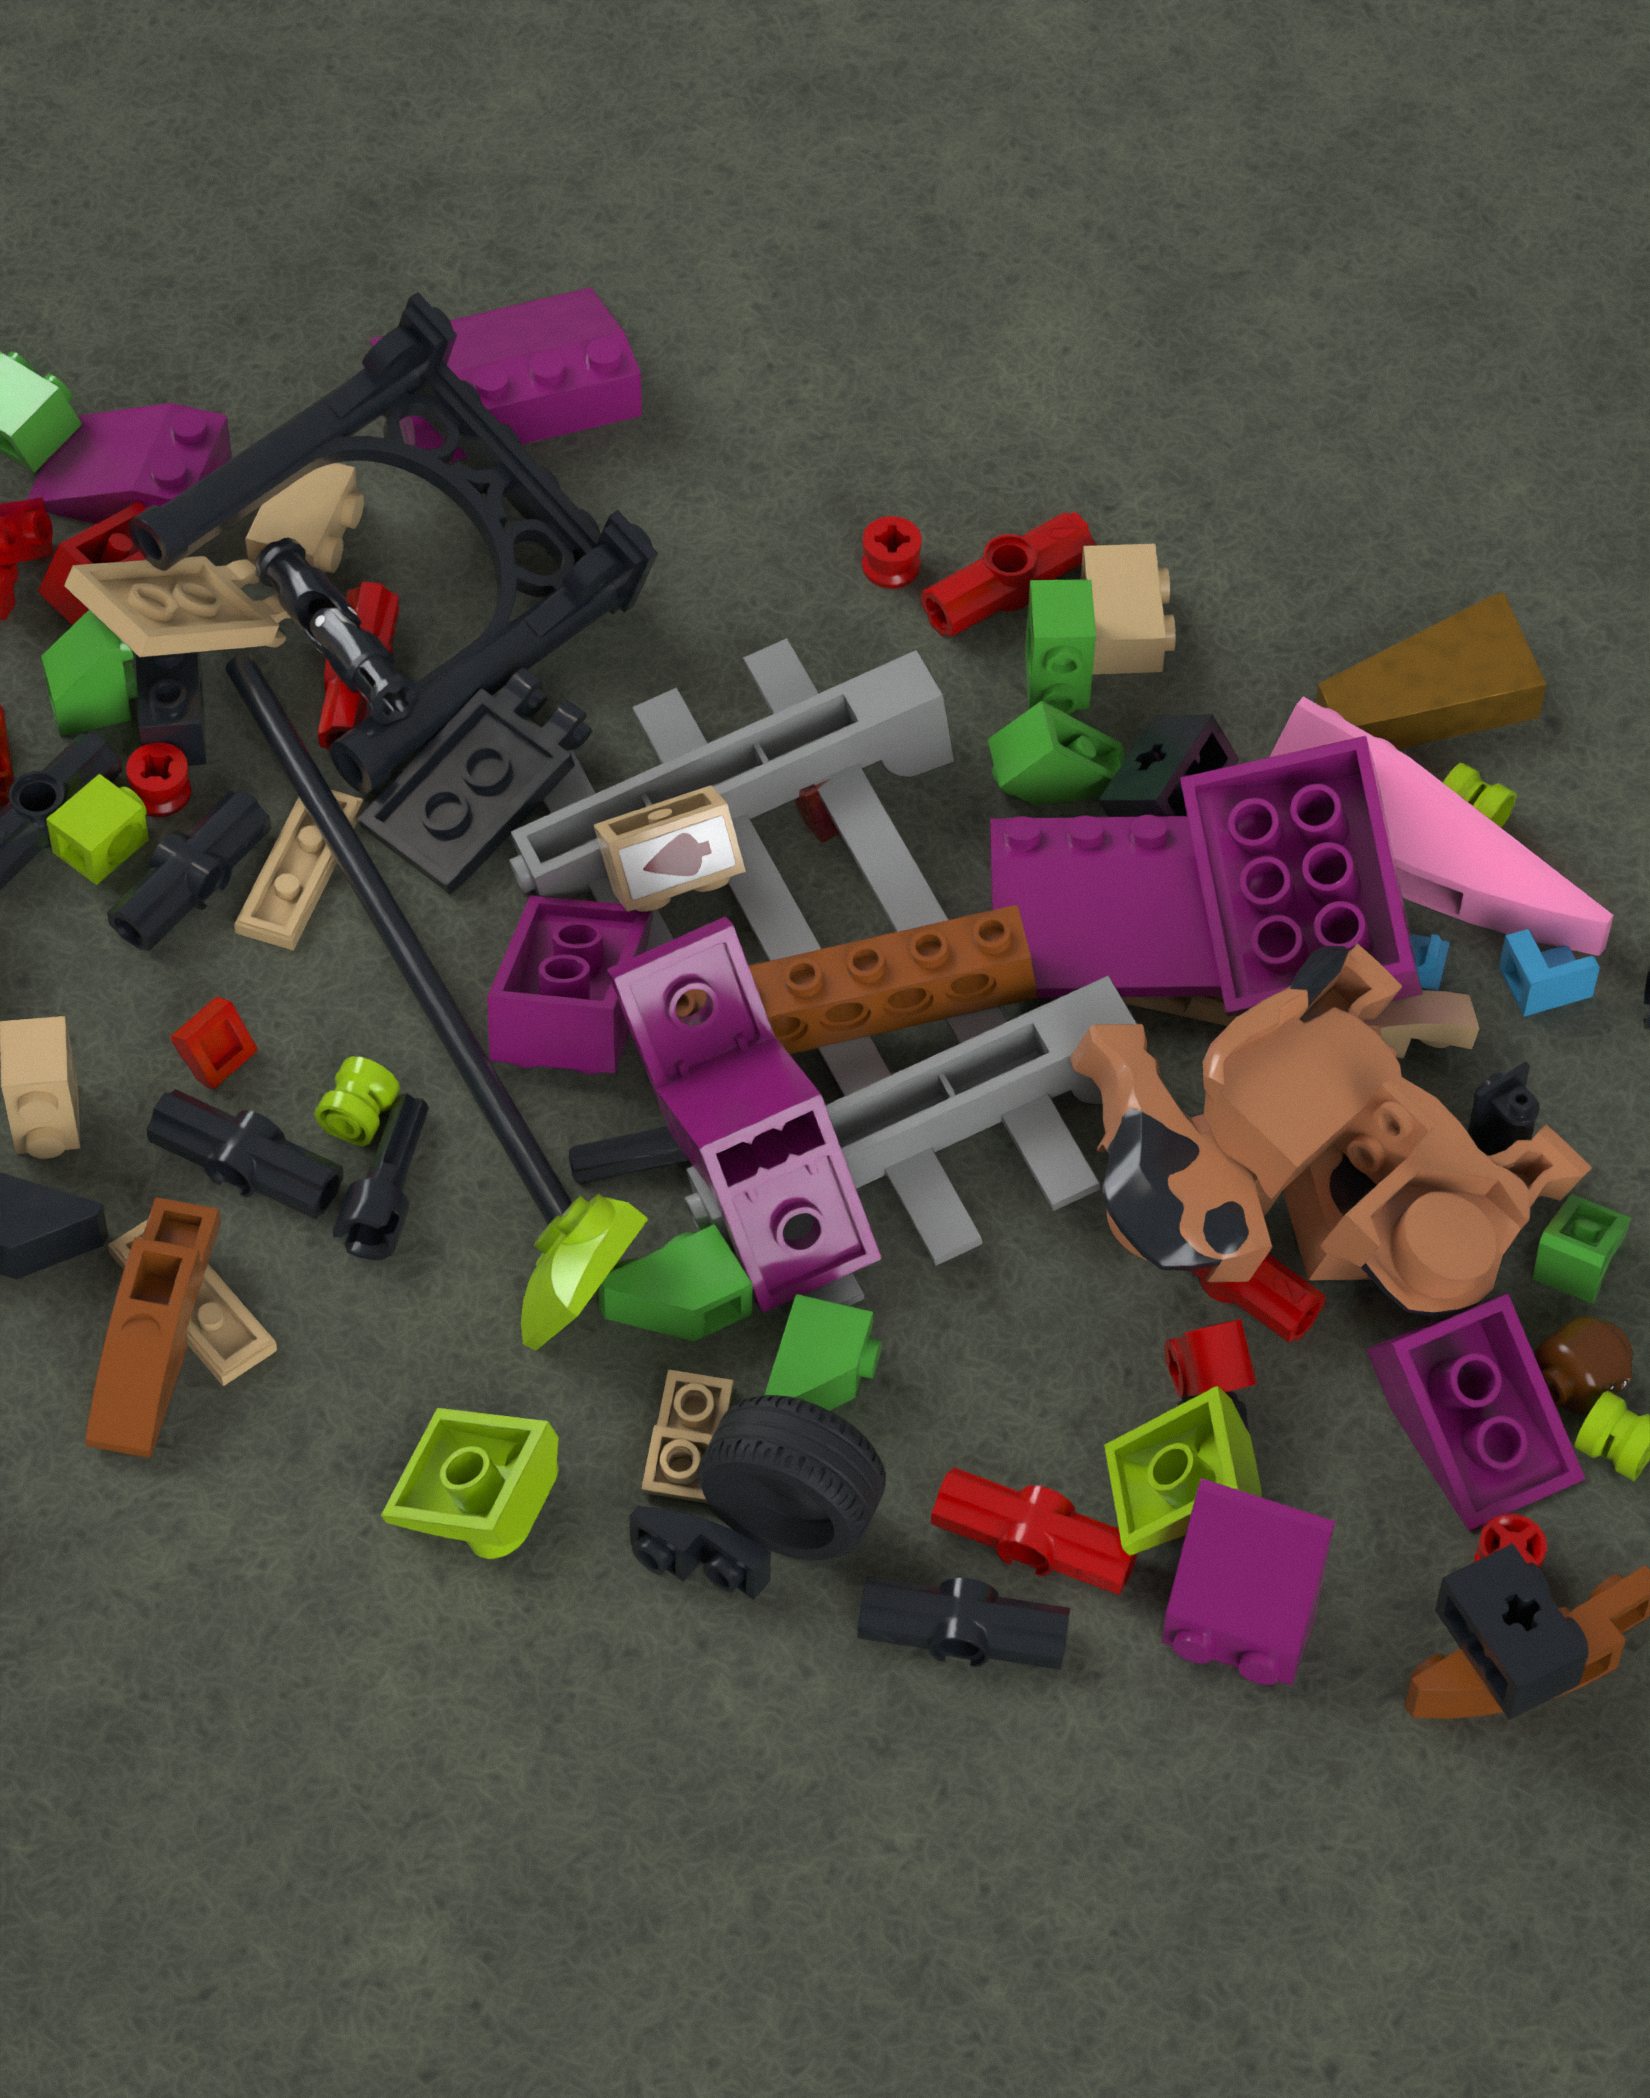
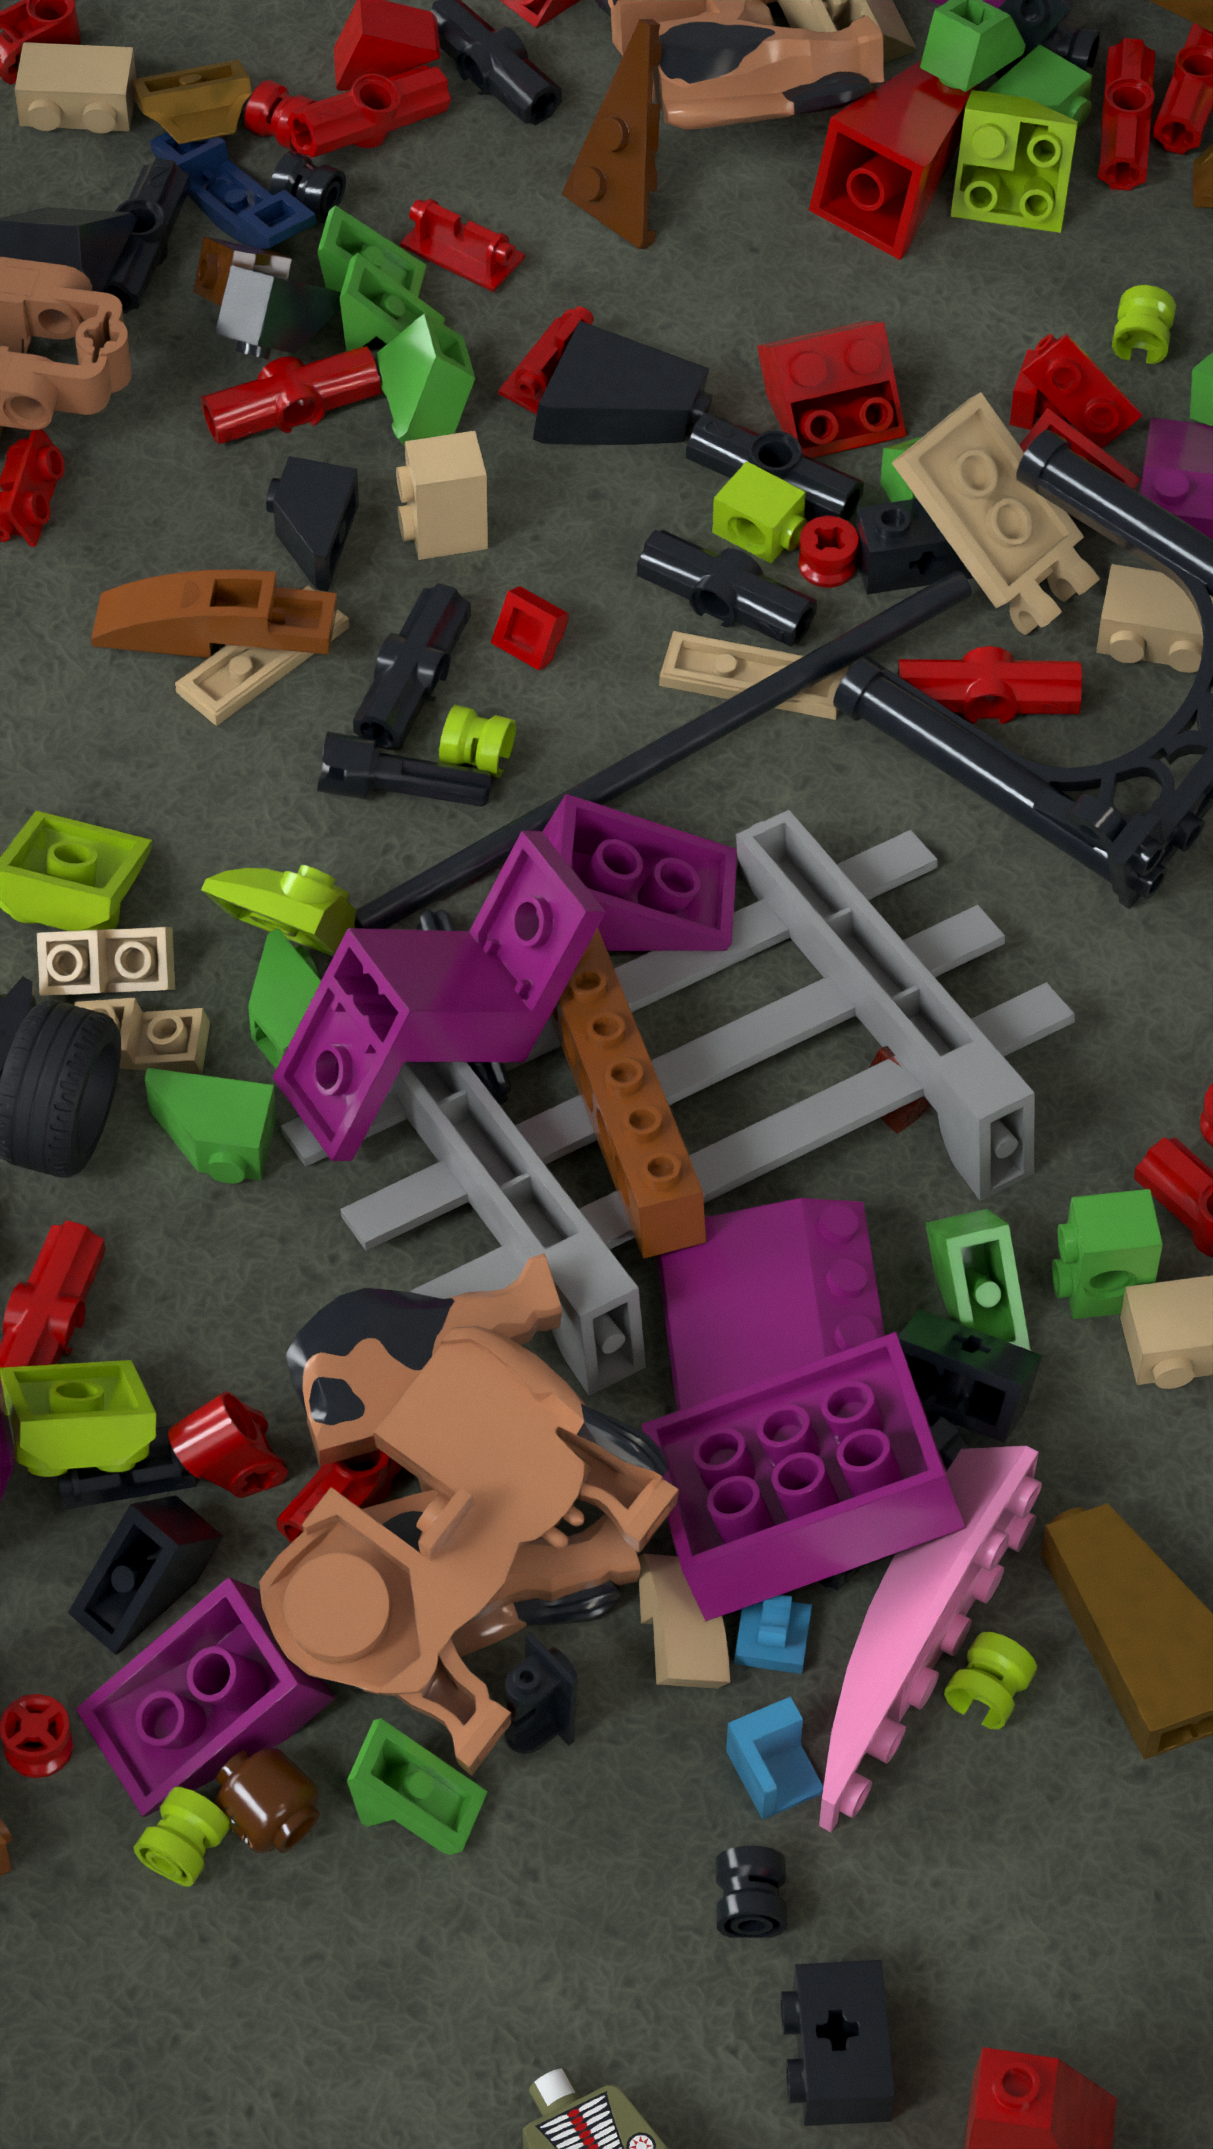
camera: 85 degrees right, 0 degrees up
(335, 630) = (1019, 621): black piece -> none
(476, 781) = (866, 791): black tile -> none
(593, 1451) = (105, 961): none -> tan slope
(670, 849) = (773, 927): brick -> none
(1337, 1450) = (144, 1569): none -> black slope

